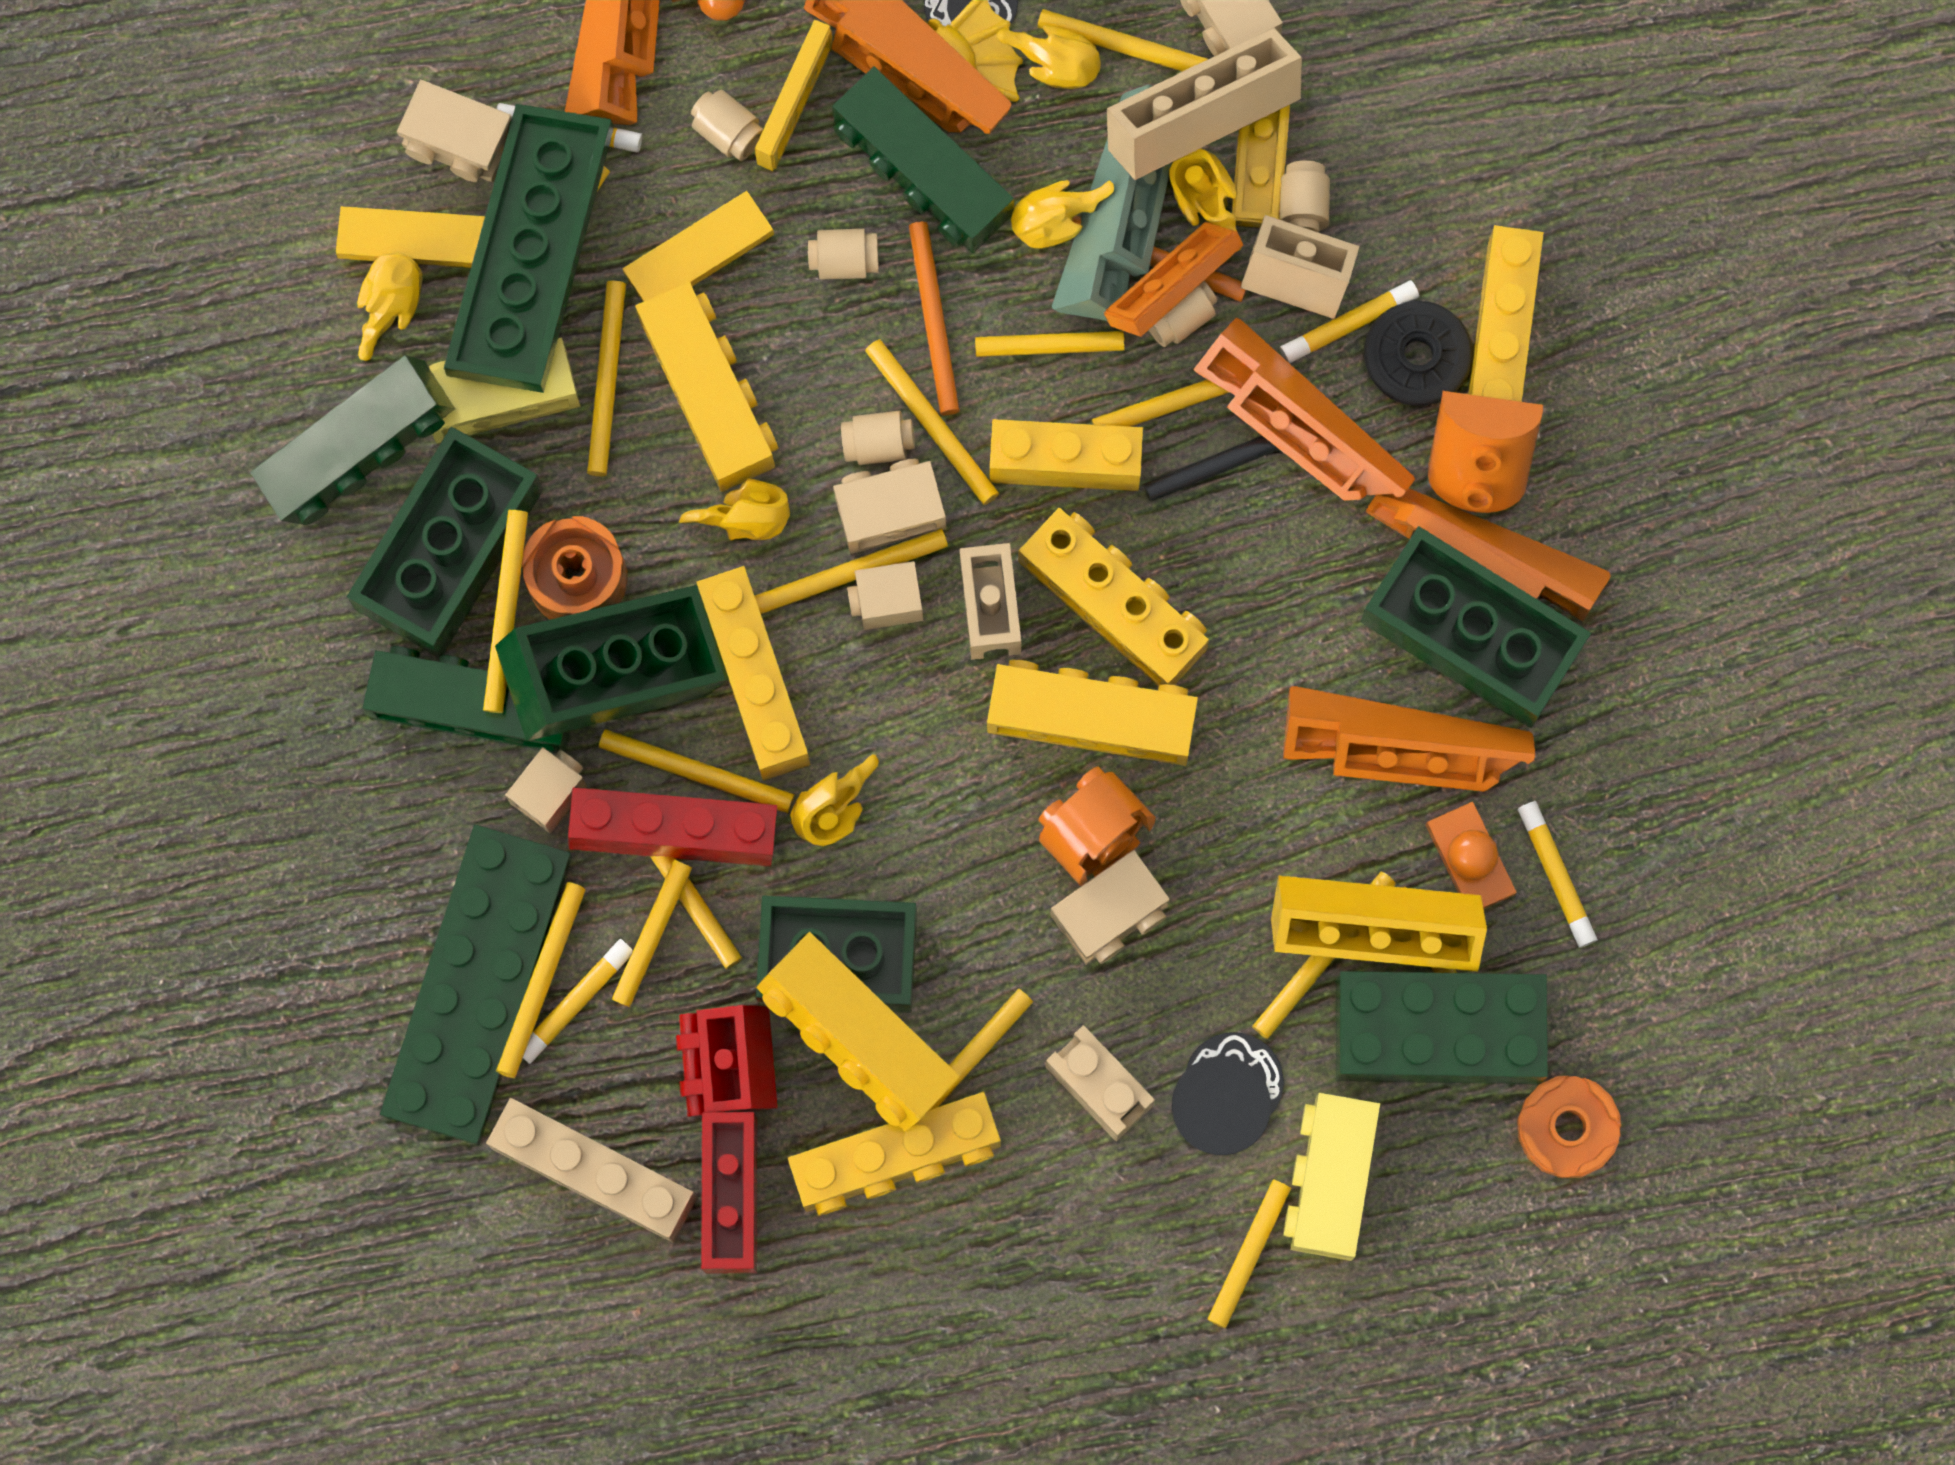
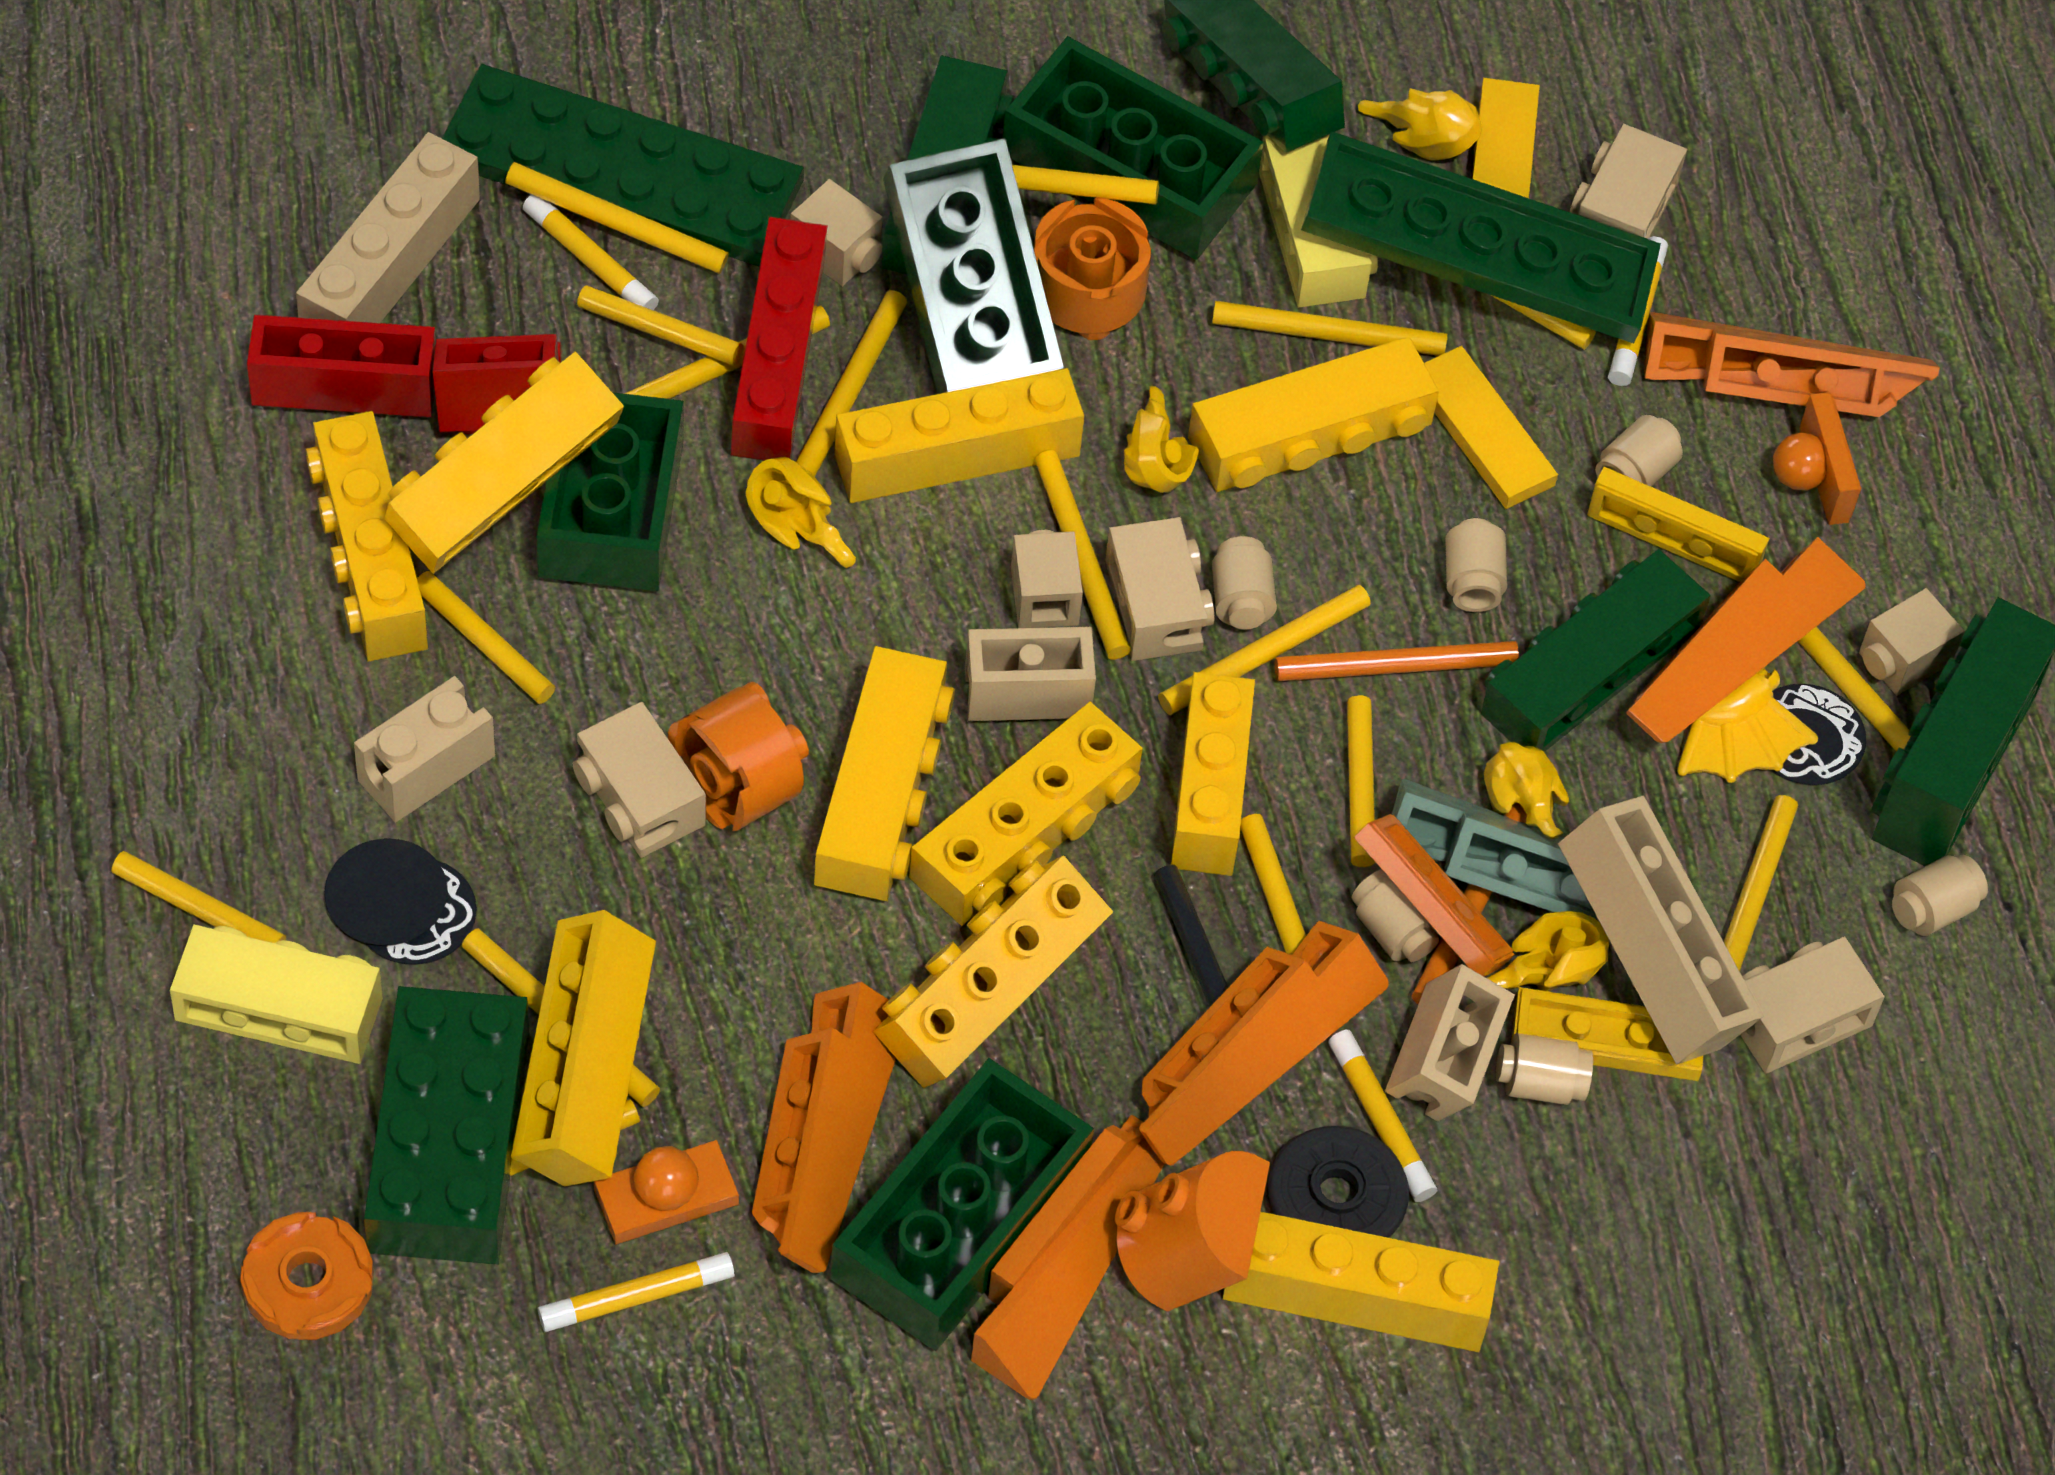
camera: 85 degrees right, 20 degrees down
(1066, 57) = (1731, 815): yellow piece -> none
(1266, 616) = (992, 970): none -> yellow brick

